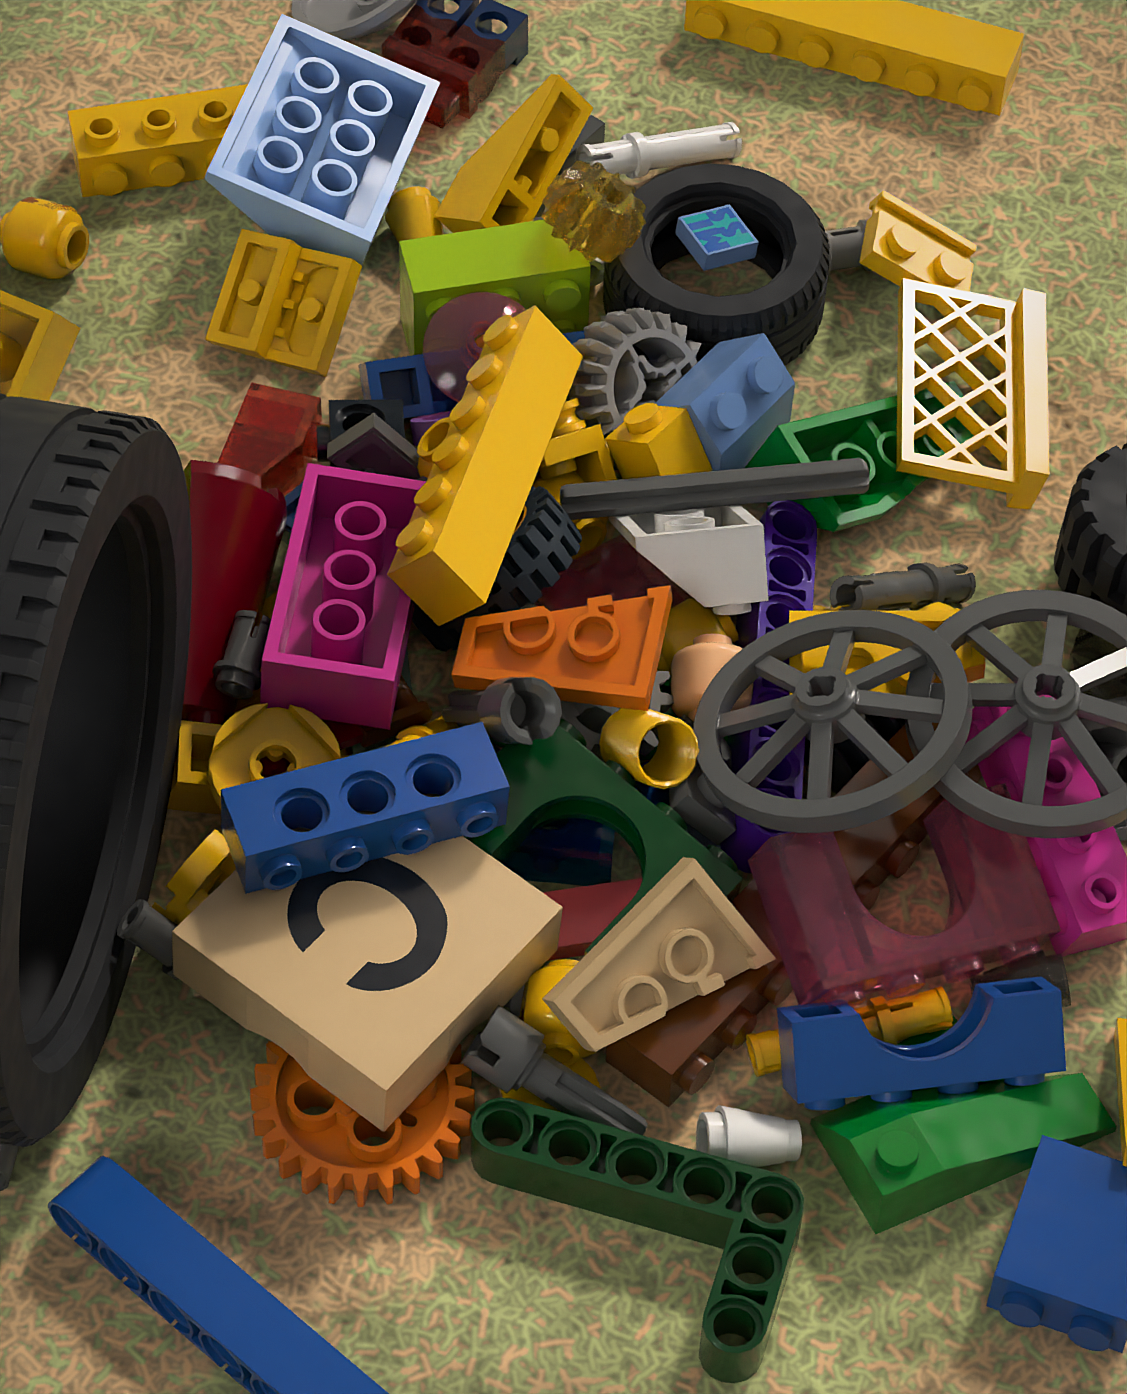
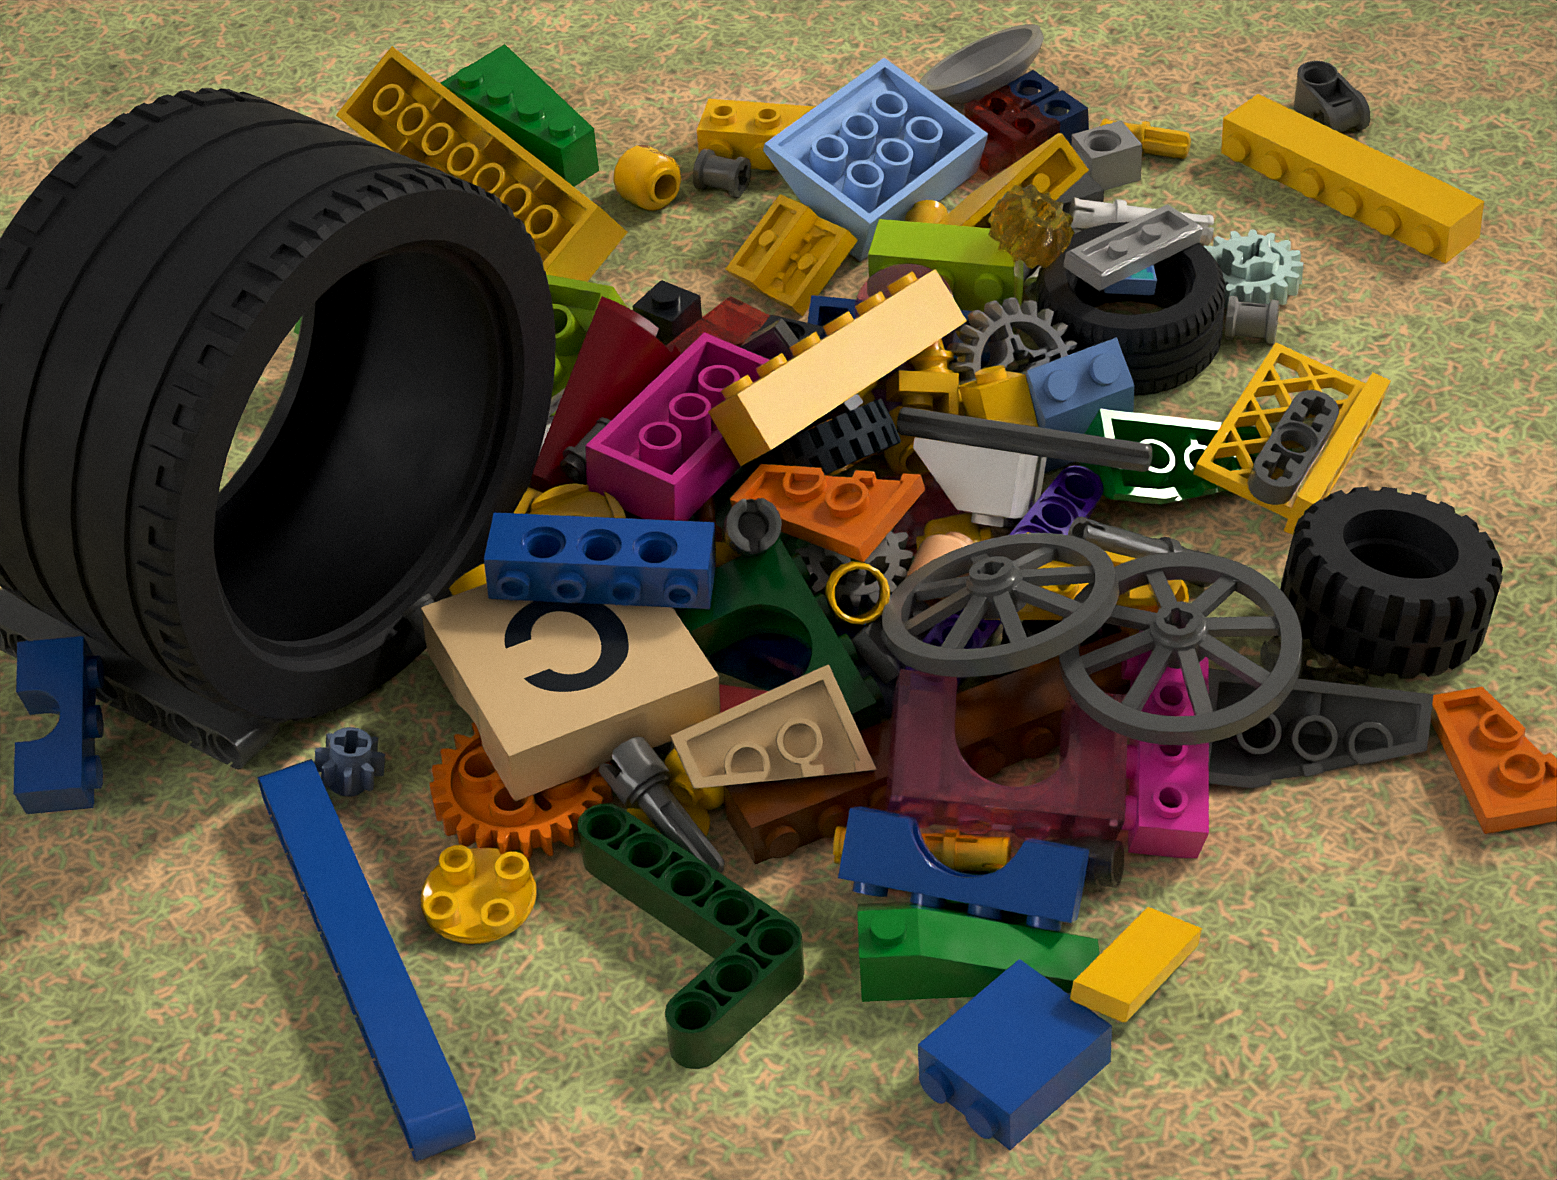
camera: 30 degrees right, 10 degrees down
(127, 207) = (721, 173): none -> dark grey bush
(145, 1140) = (349, 761): none -> sand blue gear
(192, 422) = (669, 309): none -> black brick
(389, 1257) = (478, 894): none -> yellow dish
(579, 59) = (1110, 154): none -> light grey brick
(595, 34) = (1159, 140): none -> yellow axle
(714, 206) = (1132, 247): none -> light grey tile
(748, 1137) = (796, 897): white cone -> none
(837, 178) = (1257, 267): none -> light aqua gear
(914, 247) = (1307, 327): yellow plate -> none
(979, 426) = (1294, 464): none -> dark grey beam

